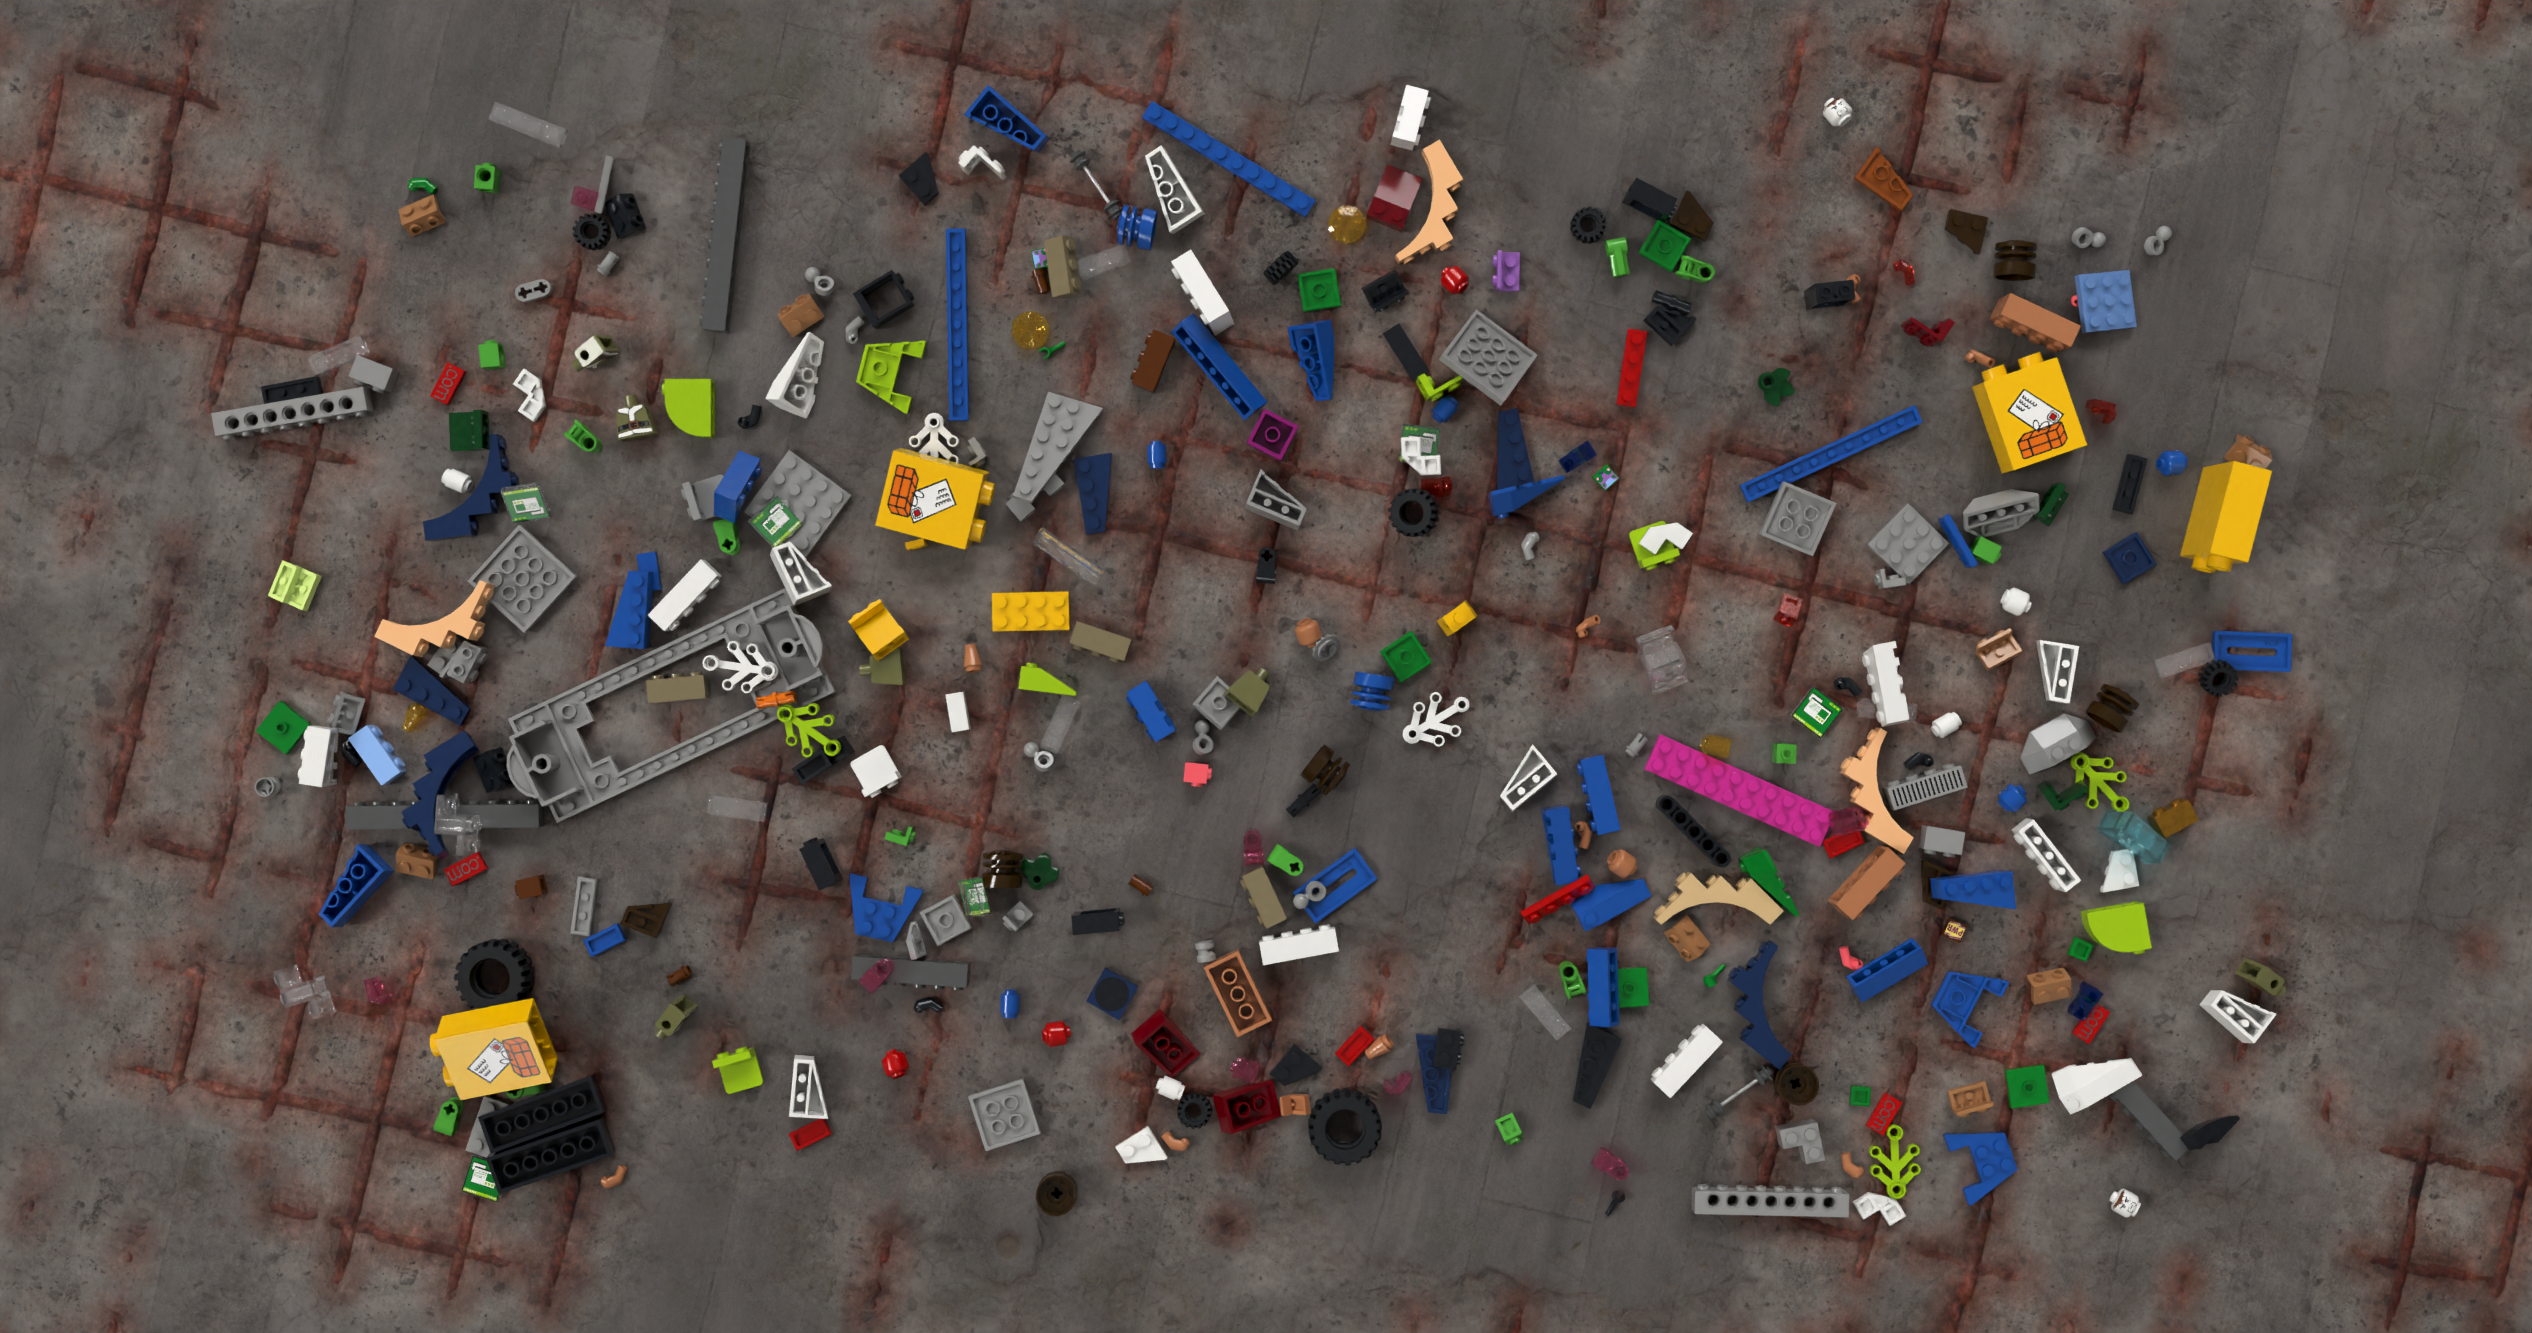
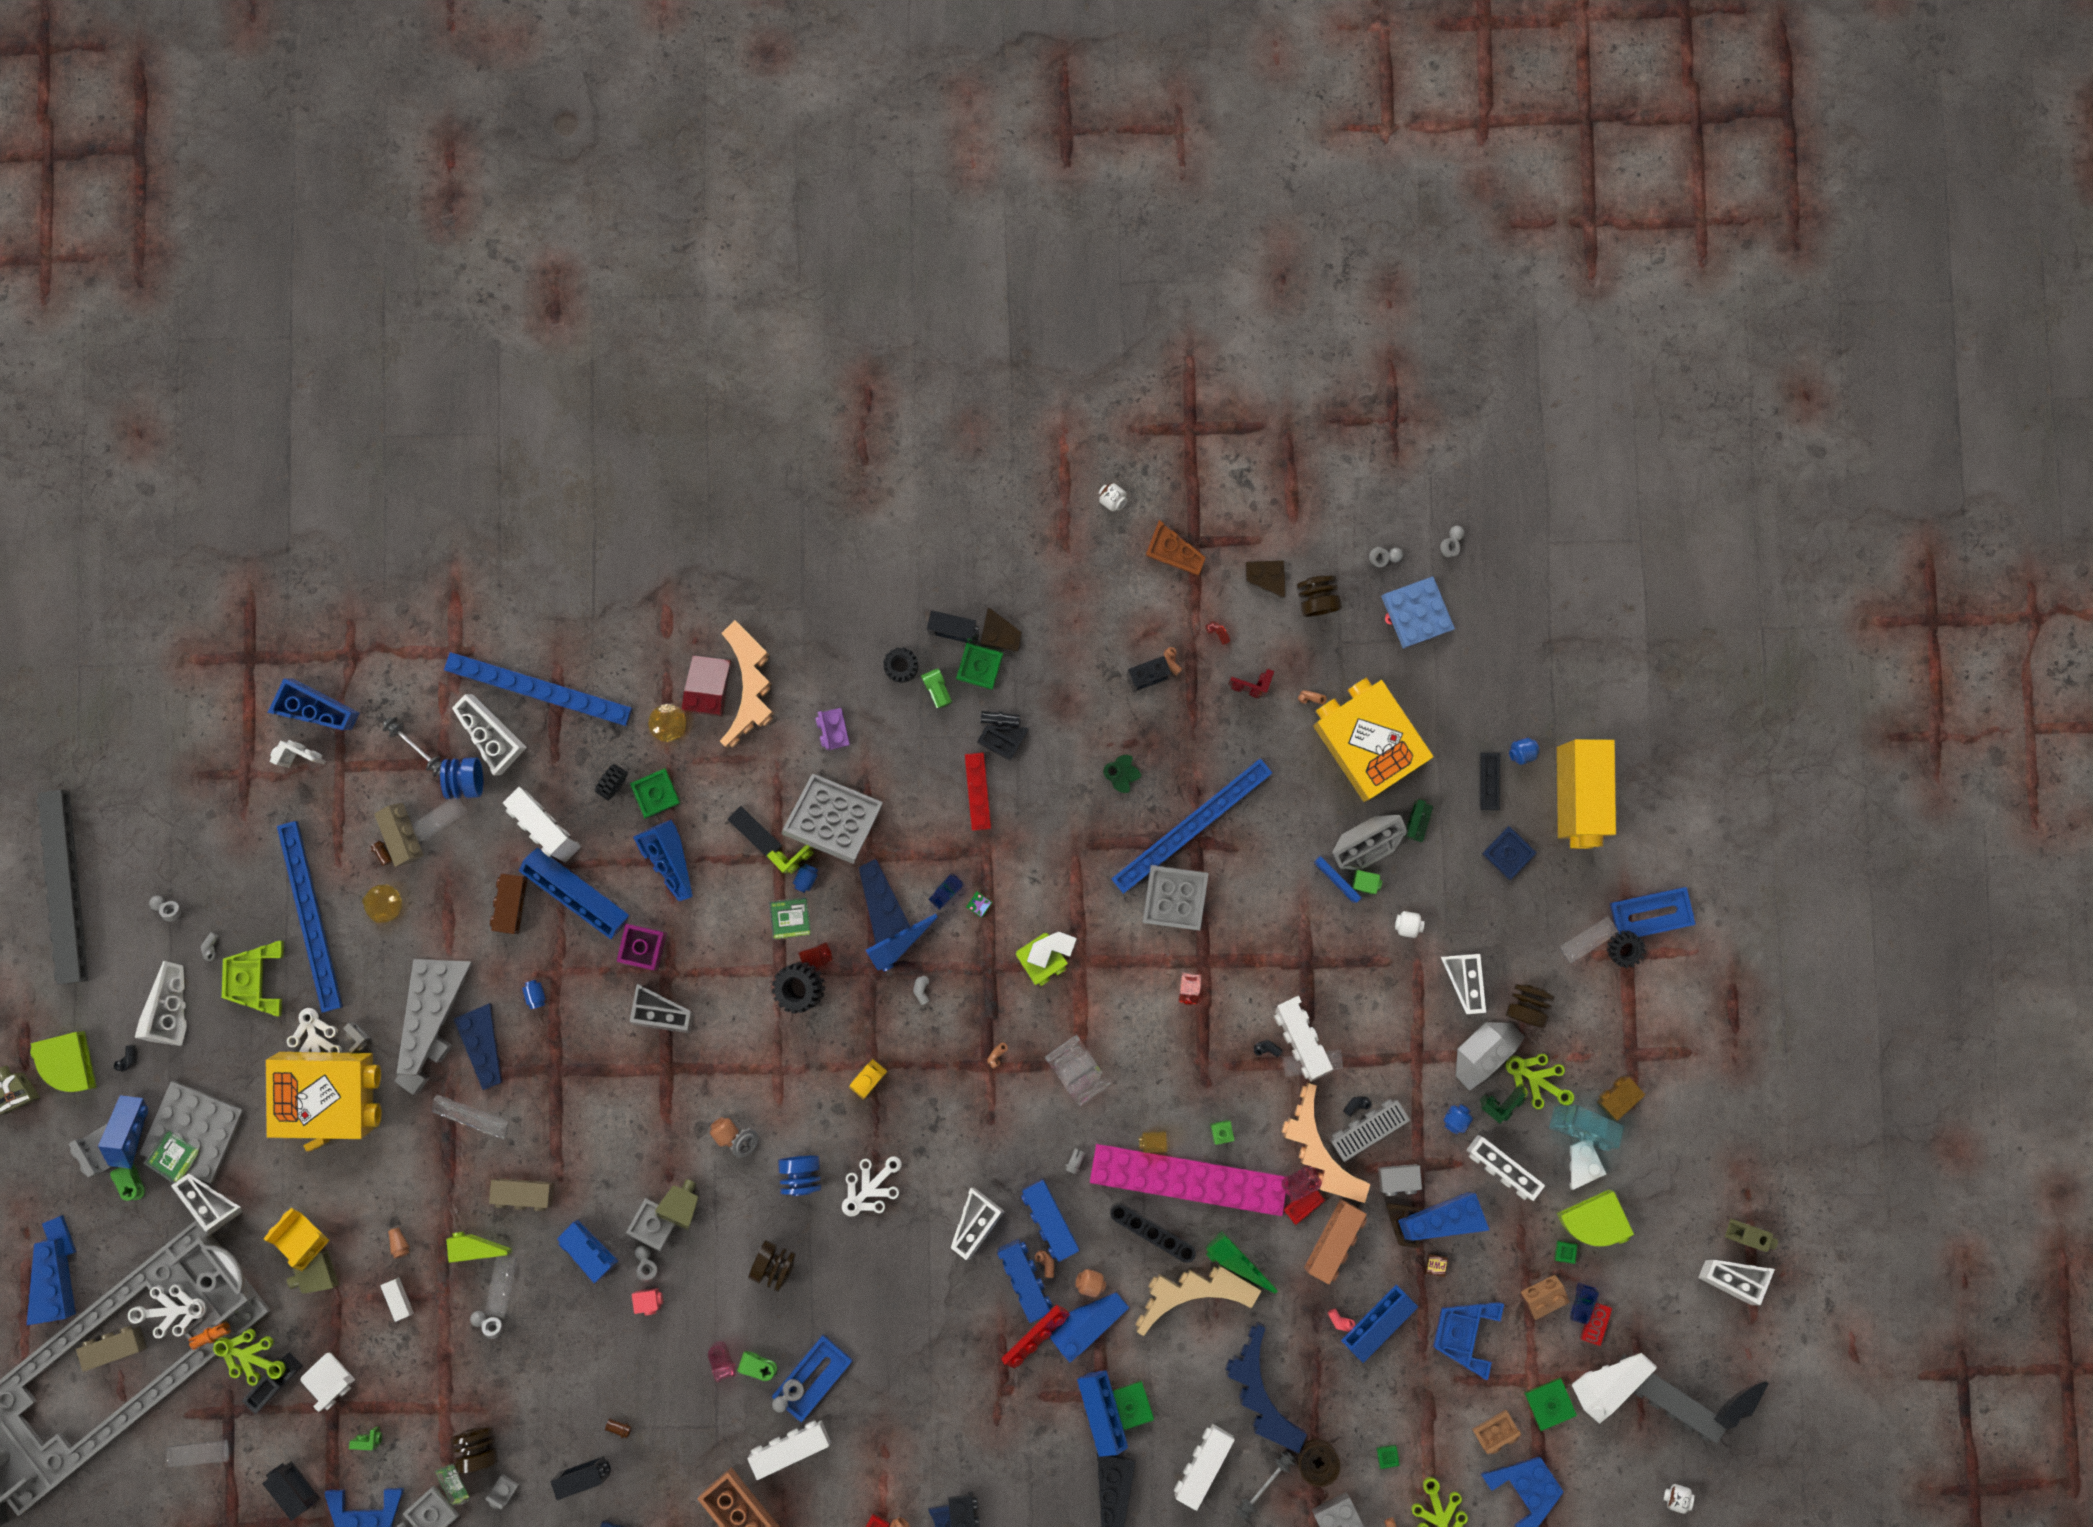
camera: 15 degrees left, 5 degrees down
(685, 595) = (97, 1253): white brick -> none
(800, 314) = (153, 945): medium nougat bracket -> none
(866, 290) = (217, 923): black window -> none
(921, 179) = (243, 783): black wing -> none
(1030, 611) = (446, 1180): yellow plate -> none
(1039, 258) = (374, 832): tile -> none
(1039, 868) = (514, 1437): dark green plate -> none
(1052, 349) = (406, 919): green hand -> none
(1205, 951) = (698, 1479): light grey wheel -> none
(1263, 897) = (743, 1409): dark tan brick -> none
(1266, 569) = (667, 1080): black piece -> none
(1303, 800) = (759, 1301): black pin -> none
(1384, 291) = (718, 778): black bracket -> none
(1406, 656) = (826, 1131): green plate -> none
(1410, 118) = (703, 606): white wedge -> none
(1412, 455) = (783, 930): white tile -> none
(1454, 280) = (784, 750): red head -> none
(1544, 1012) = (1052, 1453): clear plate -> none
(1572, 983) = (1071, 1417): bright green piece -> none
(1687, 939) = (1175, 1342): medium nougat bracket -> none
(1693, 270) = (1013, 682): bright green piece -> none
(1709, 979) = (1207, 1377): green hand -> none
(1816, 712) = (1244, 1082): tile -> none
(1883, 1113) = (1416, 1469): red tile -> none
(1892, 581) = (1284, 934): light grey bracket -> none
(1907, 543) = (1290, 894): light grey plate -> none
(1946, 724) = (1373, 1062): white brick -> none
(1997, 649) = (1404, 975): medium nougat bracket -> none
(2034, 323) = (1354, 650): nougat brick -> none
(2100, 406) = (1440, 714): clear red bracket -> none
(2249, 453) = (1596, 724): medium nougat bracket -> none

